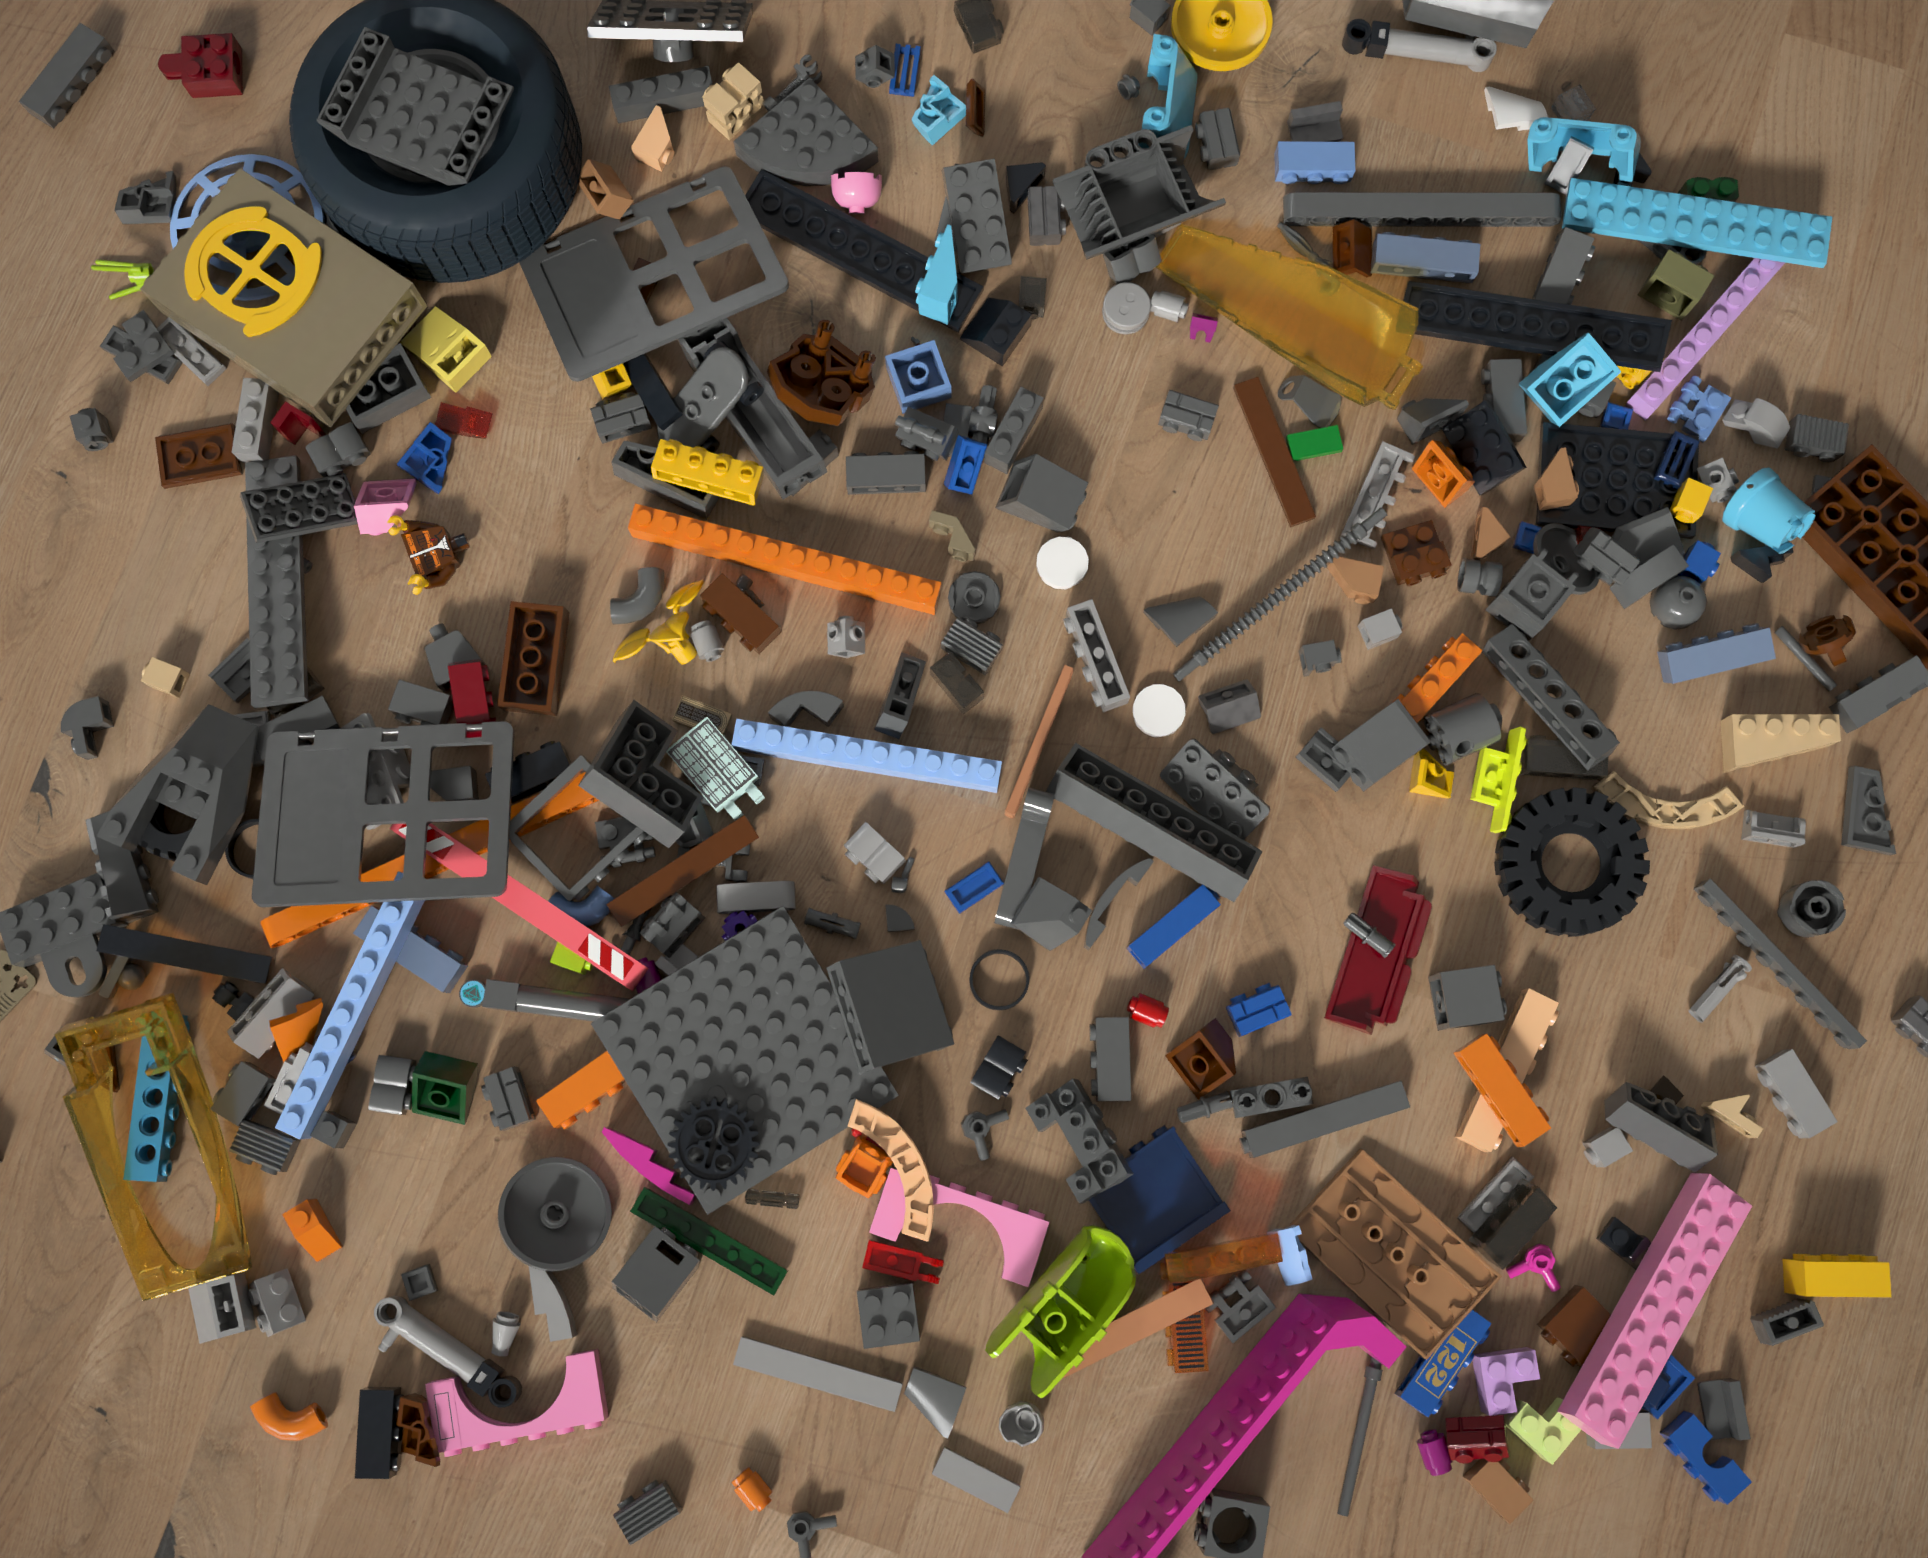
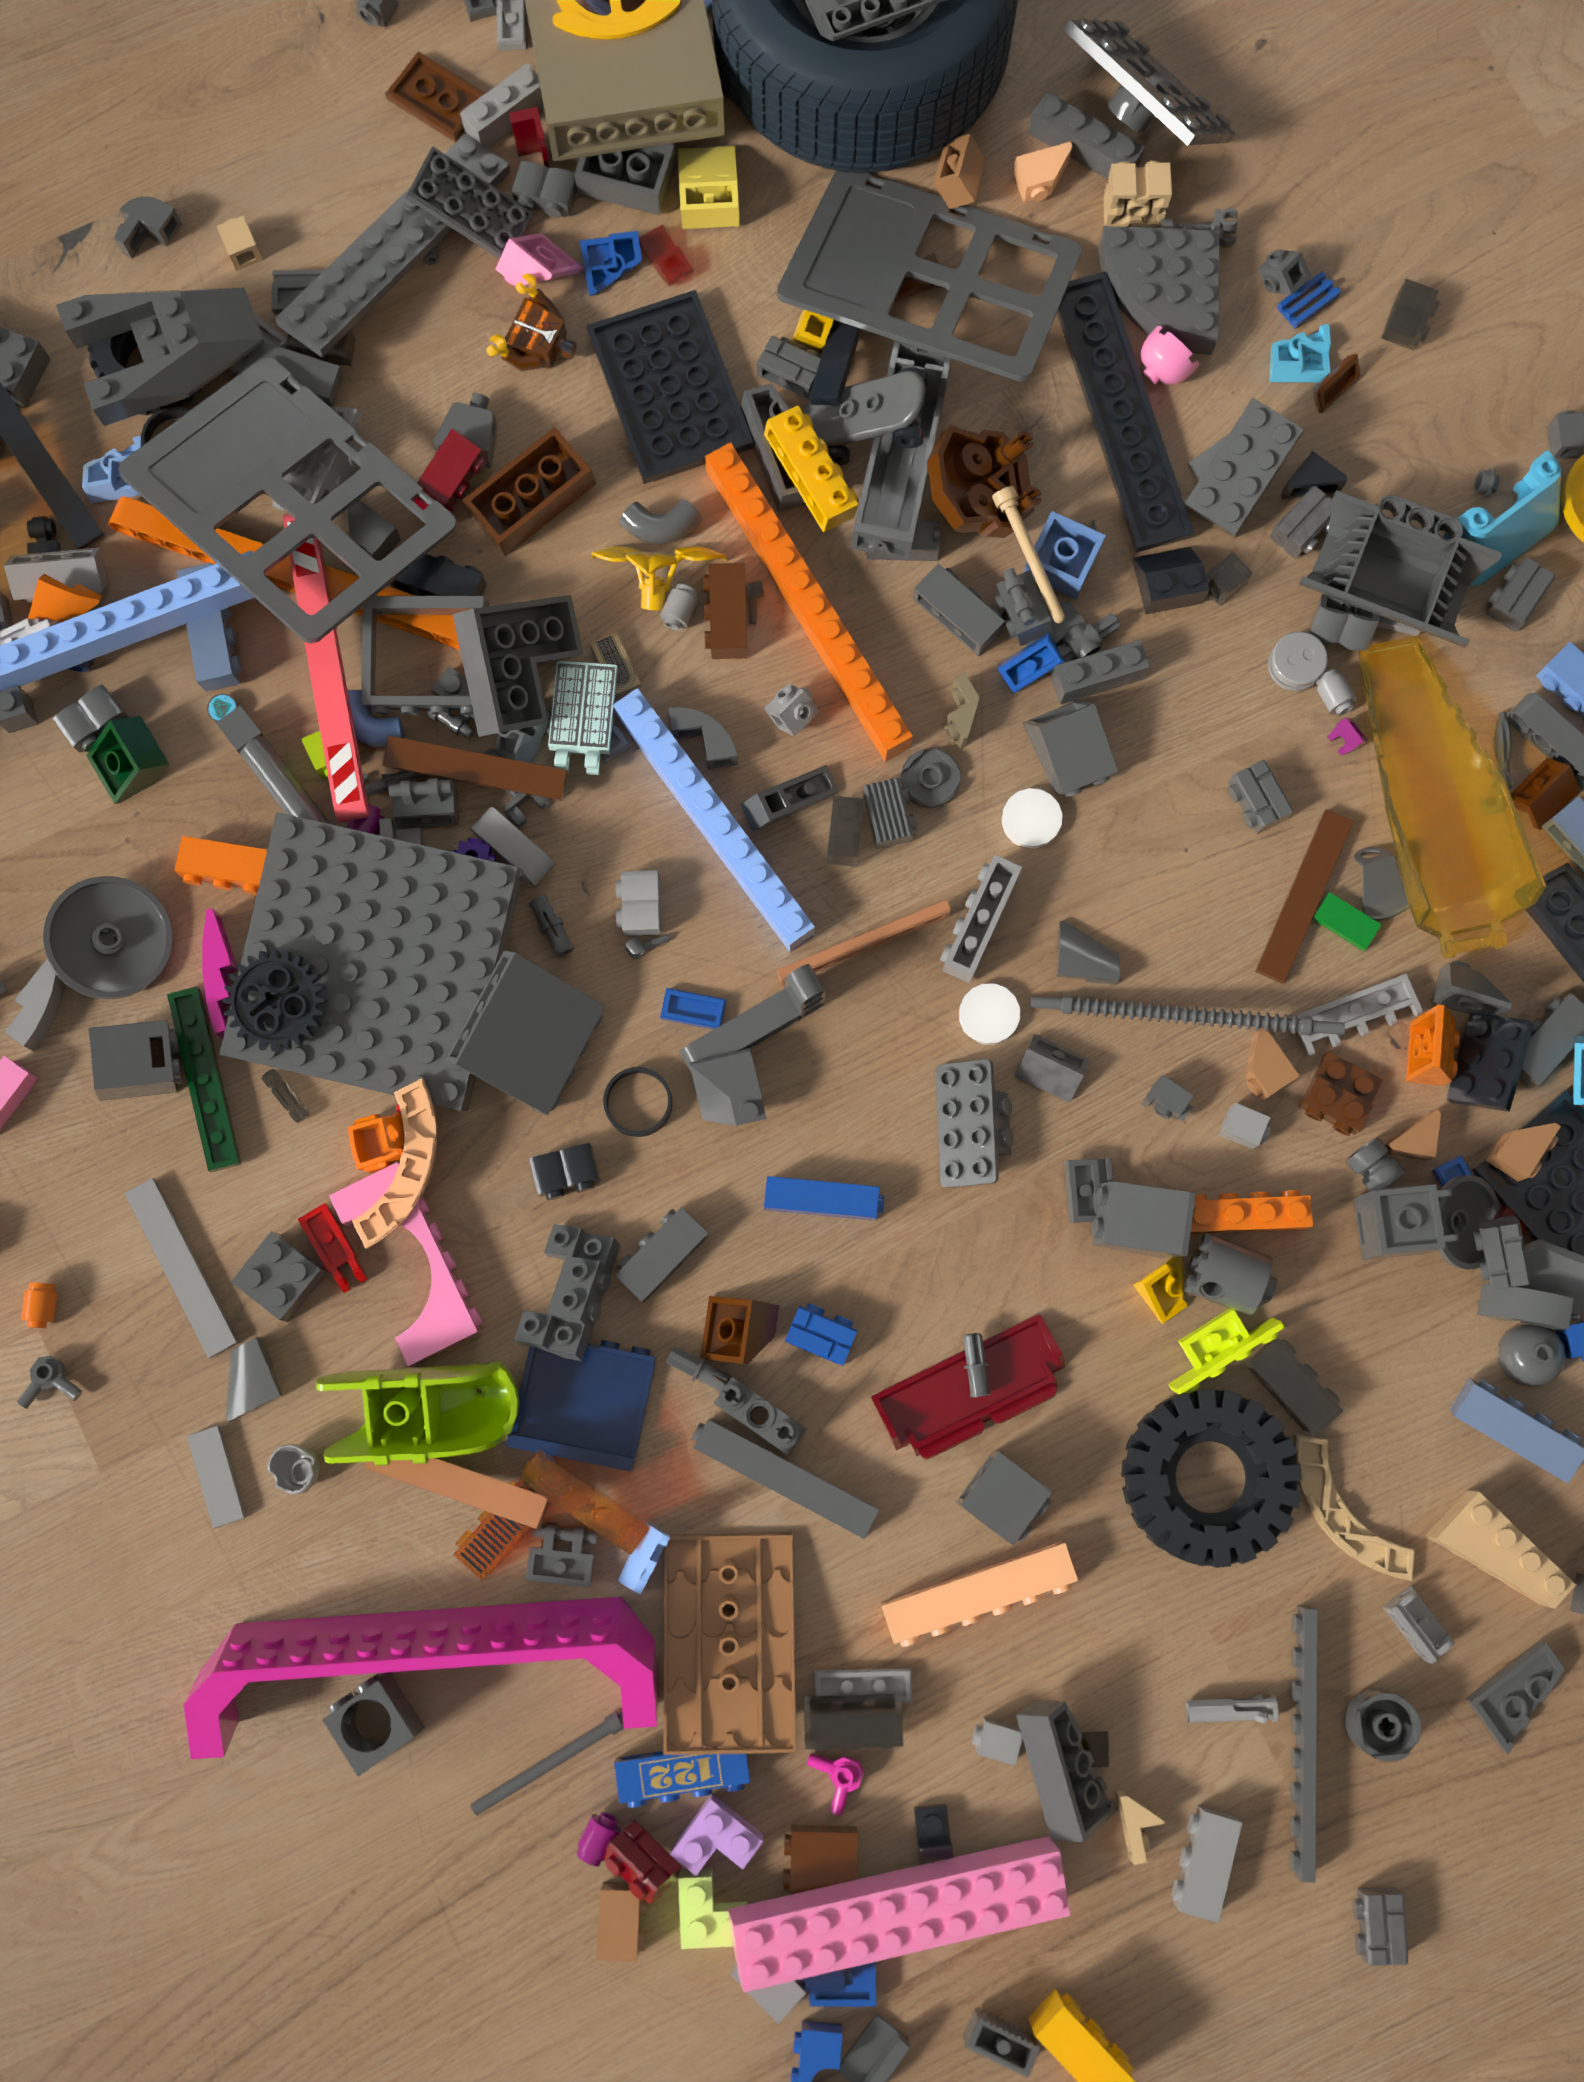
camera: 45 degrees right, 0 degrees up
(124, 877) = (51, 370): dark grey wedge -> none
(237, 911) = (102, 476): none -> light blue slope
(420, 704) = (406, 443): dark grey brick -> none
(508, 1099) = (165, 815): dark grey brick -> none
(553, 503) = (669, 385): none -> black plate
(853, 376) = (1007, 501): none -> tan piece
(898, 919) = (606, 974): dark grey tile -> none
(939, 288) = (1153, 494): medium azure slope -> none
(976, 1126) = (499, 1200): dark grey piece -> none
(1133, 875) = (833, 1125): dark grey slope -> none
(1147, 1010) = (731, 1245): red brick -> none
(1154, 822) = (889, 1097): dark grey brick -> none
(1502, 1089) = (953, 1602): orange brick -> none
(1551, 710) = (1318, 1397): dark grey brick -> none

